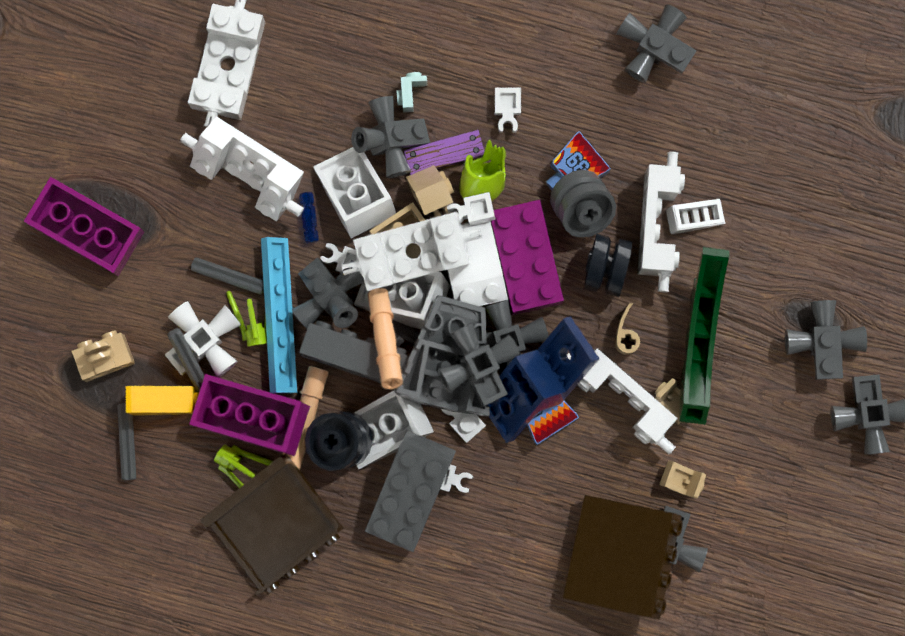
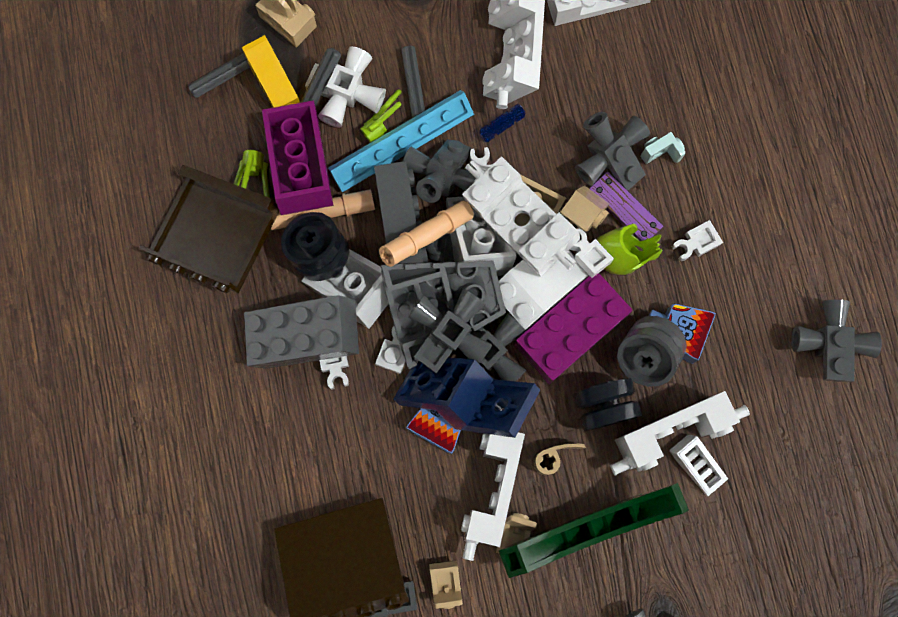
camera: 60 degrees right, 5 degrees down
(355, 191) = (547, 147): white slope -> none

